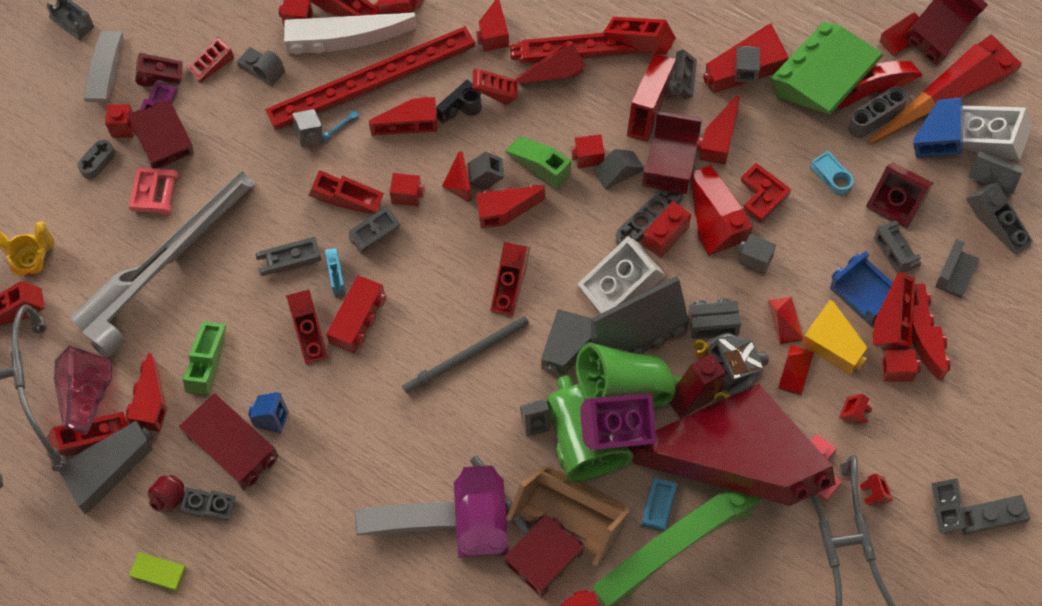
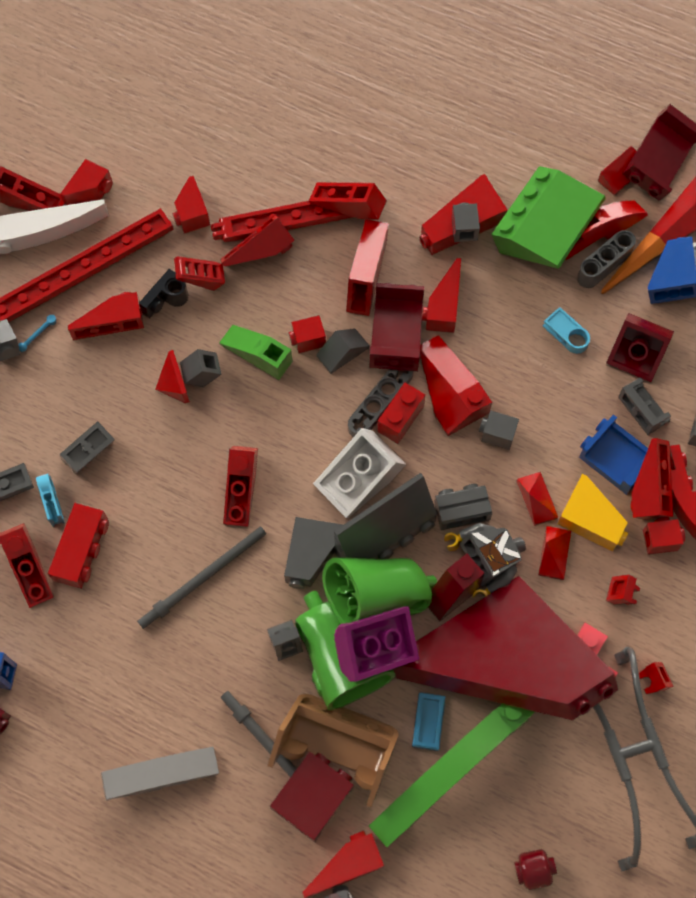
camera: 10 degrees left, 5 degrees up
(345, 193) = (52, 409): red slope -> none
(406, 189) = (117, 398): red brick -> none
(480, 513) = (238, 758): magenta slope -> none
(503, 206) = (223, 406): red slope -> none
(684, 75) = (399, 240): dark grey hinge -> none
(768, 189) = (503, 360): red plate -> none

